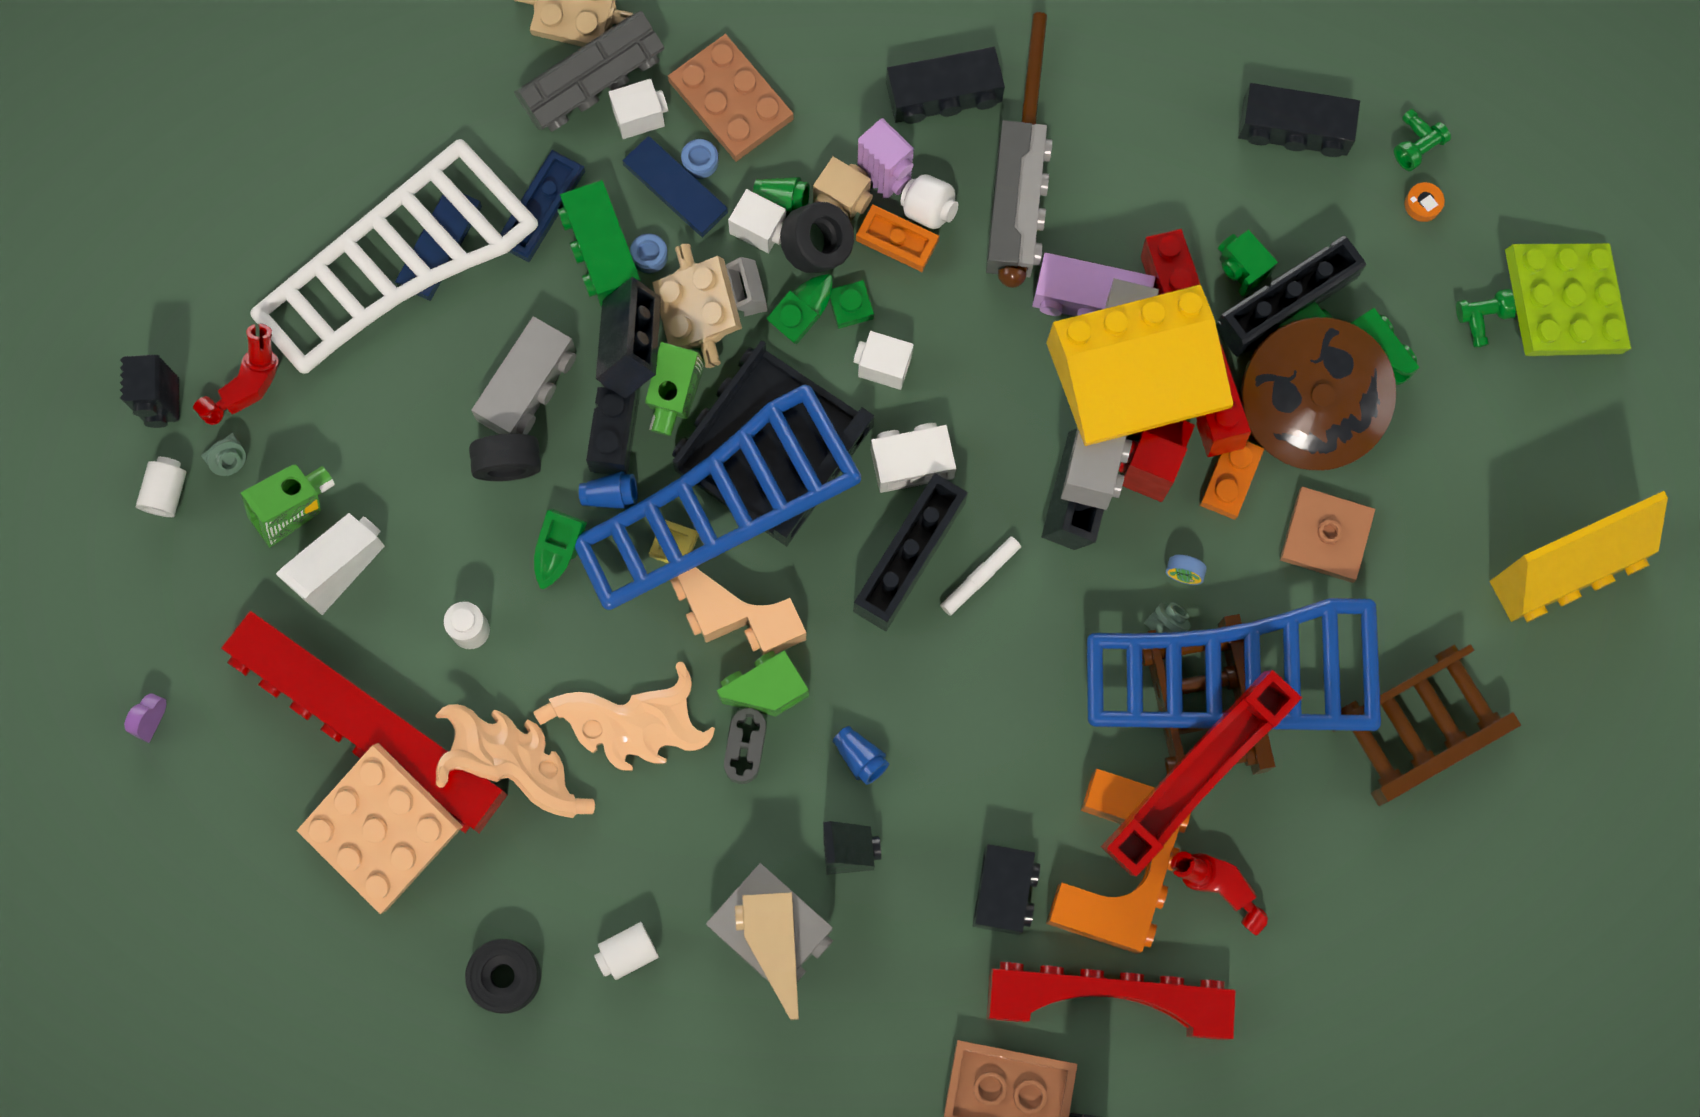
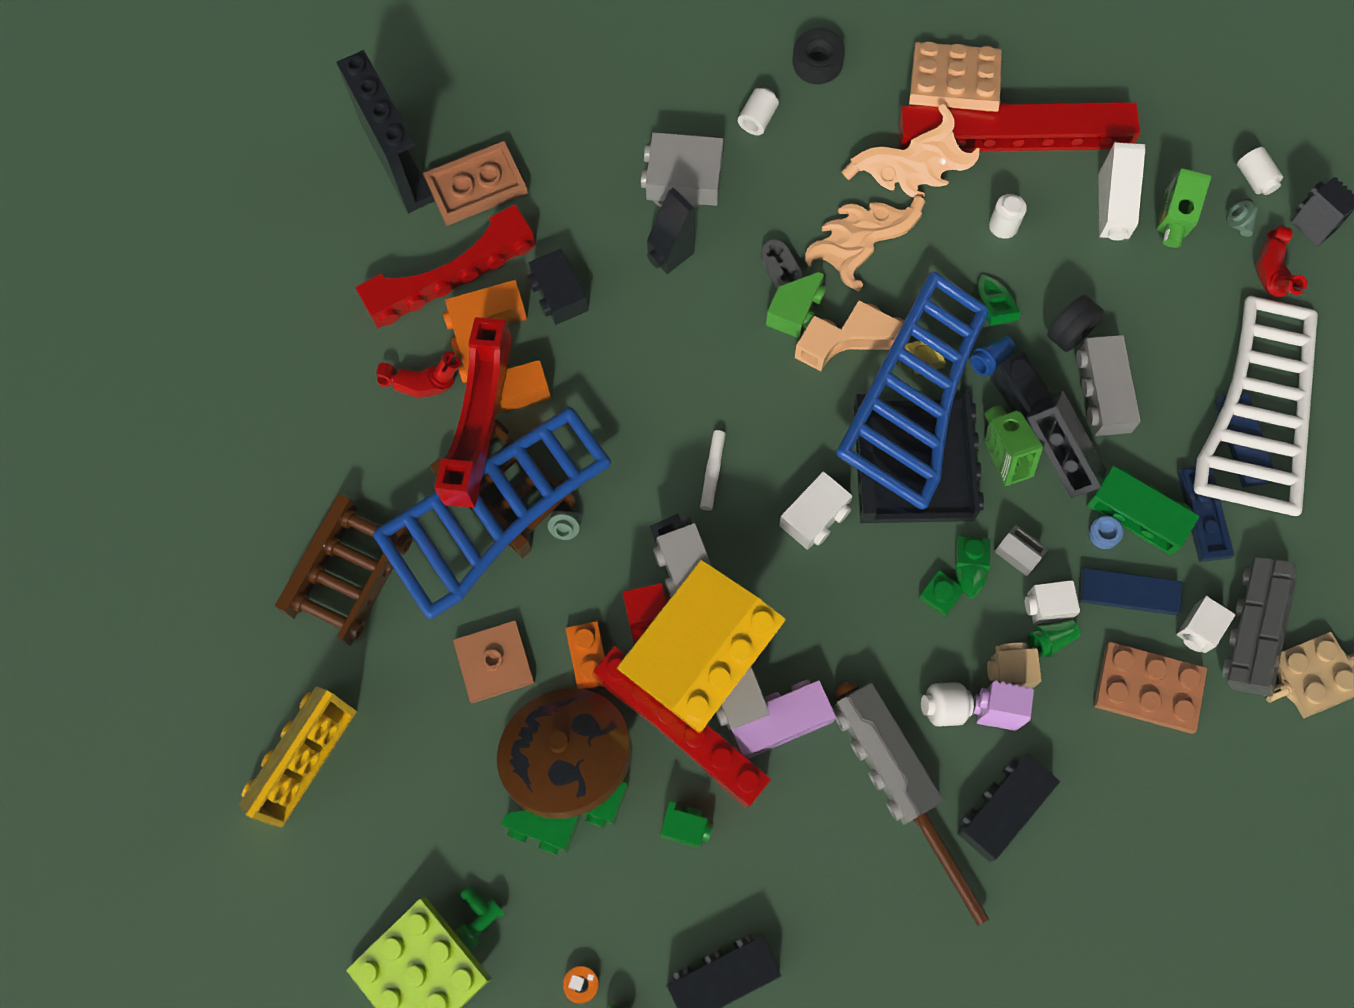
camera: 150 degrees right, 5 degrees down
(145, 717) = (1141, 48): medium lavender tile -> none
(698, 304) = (1042, 512): tan plate -> none
(700, 158) = (1131, 625): medium blue tile -> none
(770, 935) = (672, 142): tan slope -> none
(836, 231) = (983, 608): black tyre -> none
(860, 755) = (705, 306): blue cone -> none
(884, 359) = (887, 565): white brick -> none
(897, 238) = (948, 662): orange plate -> none
(910, 552) = (769, 443): black brick -> none
(1186, 569) = (576, 564): medium blue tile -> none
(1289, 294) = (633, 817): black brick -> none

